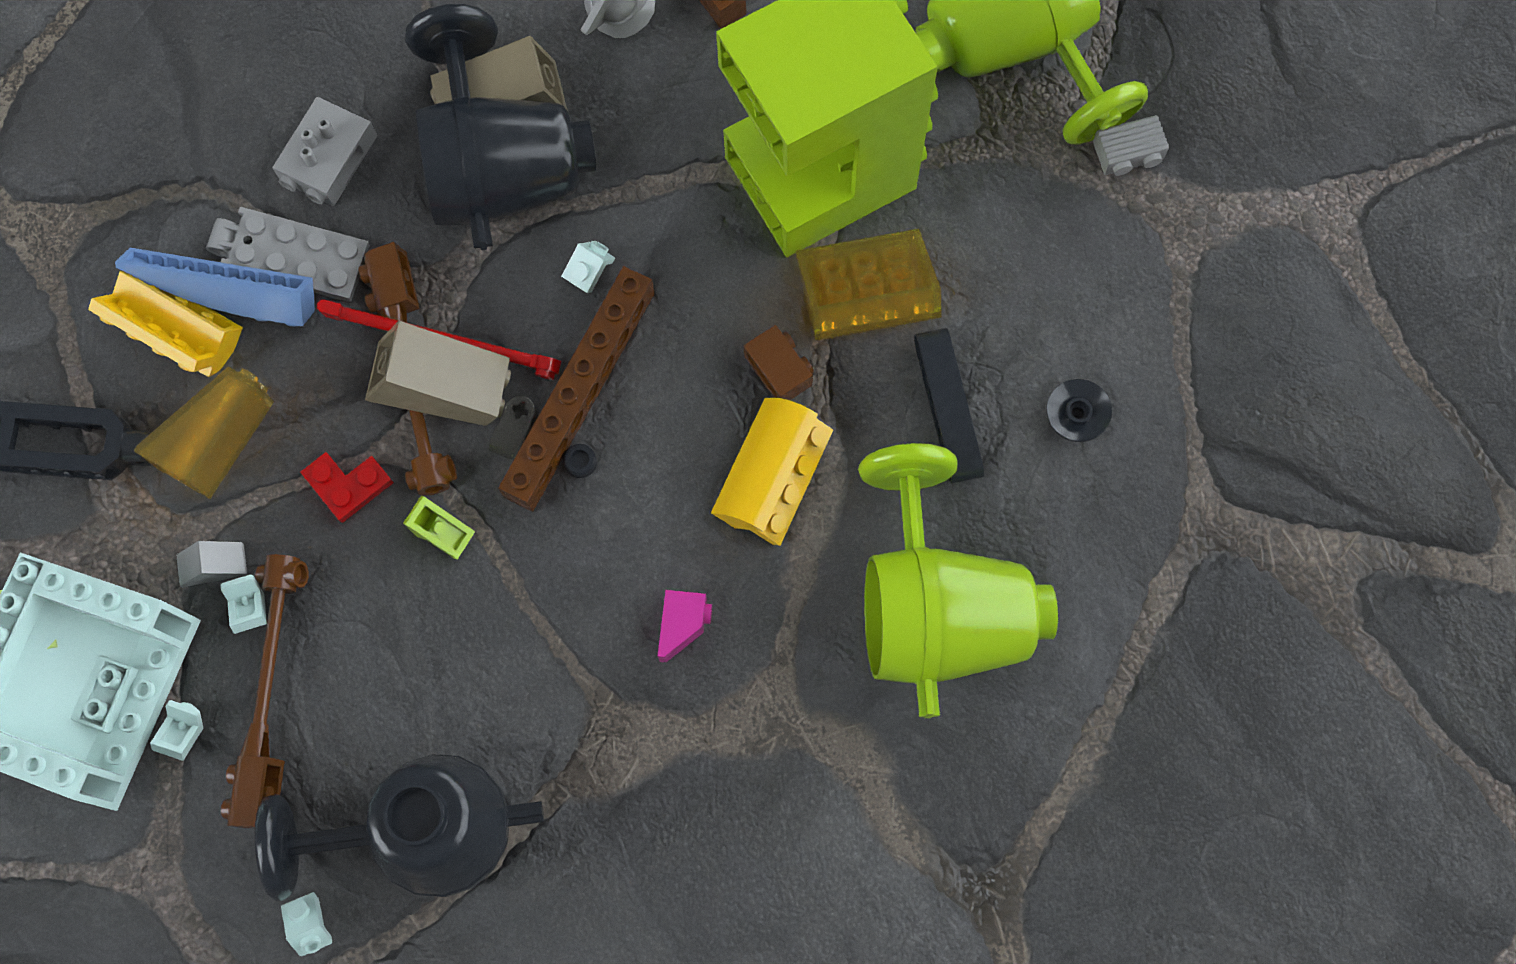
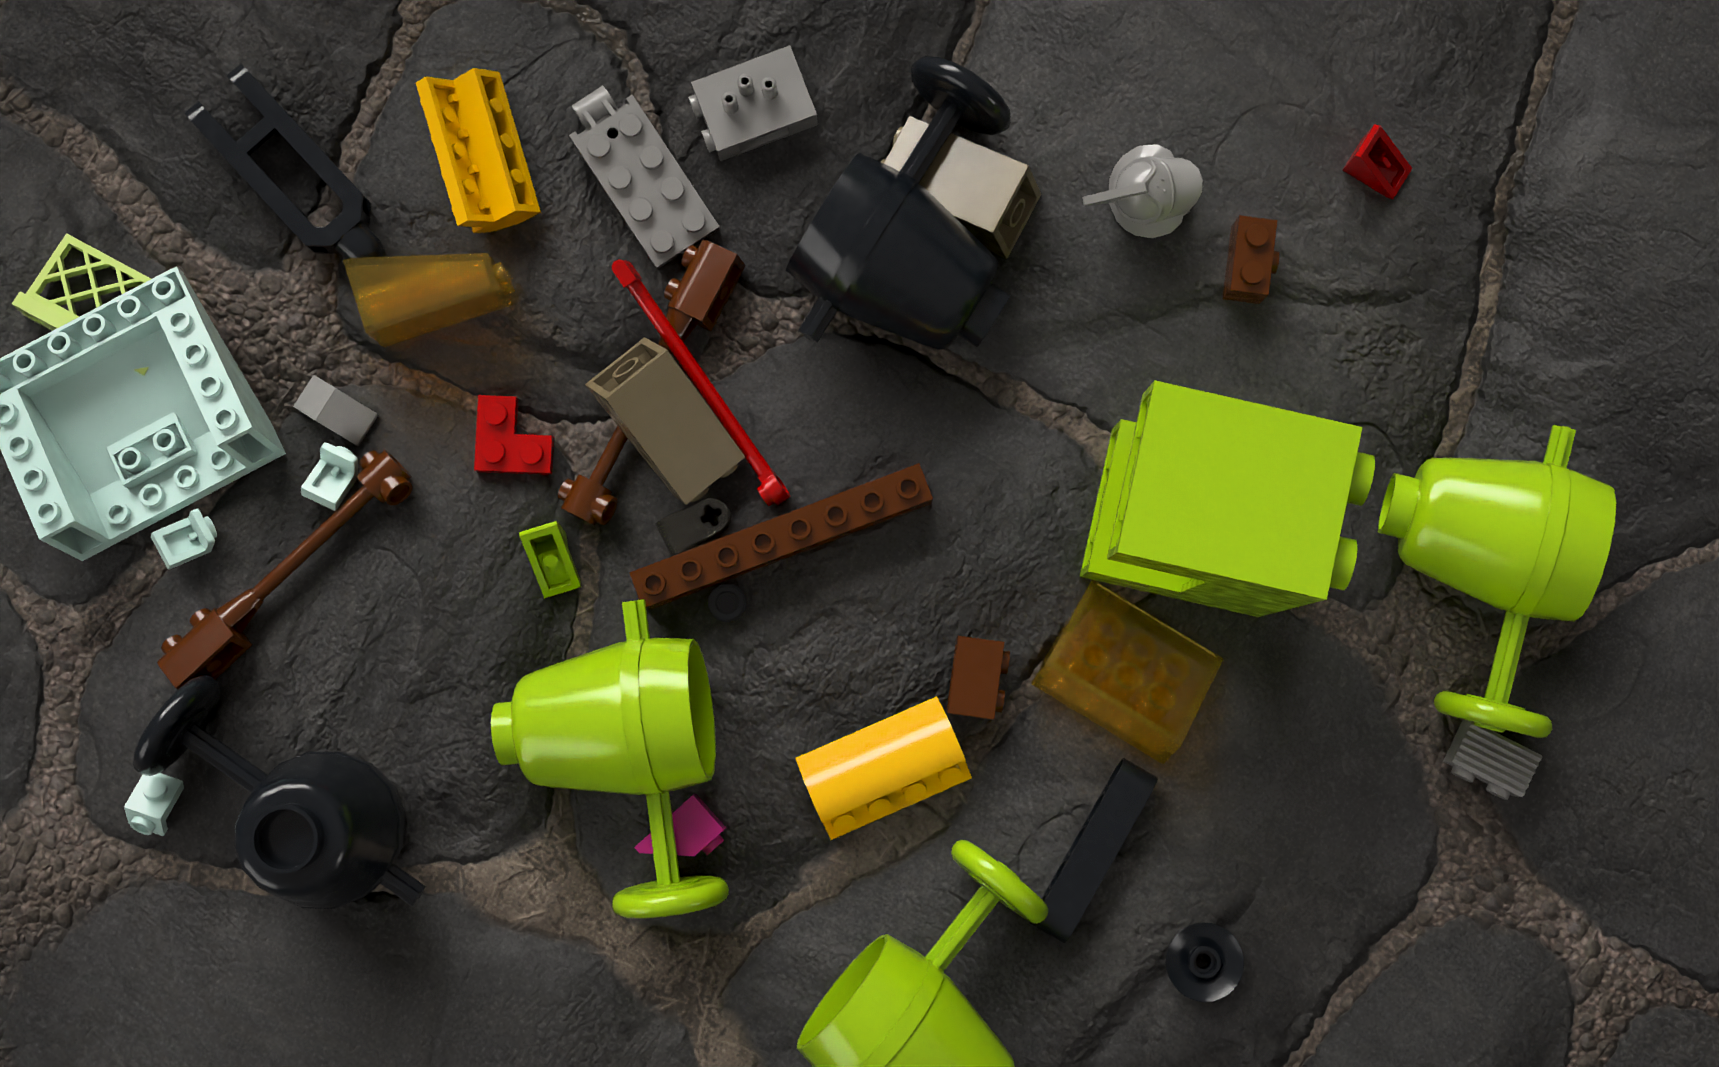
camera: 40 degrees right, 10 degrees up
(225, 286) = (554, 158): medium blue slope -> none
(580, 581) = (622, 724): none -> lime piece
(587, 265) = (893, 426): light aqua bracket -> none

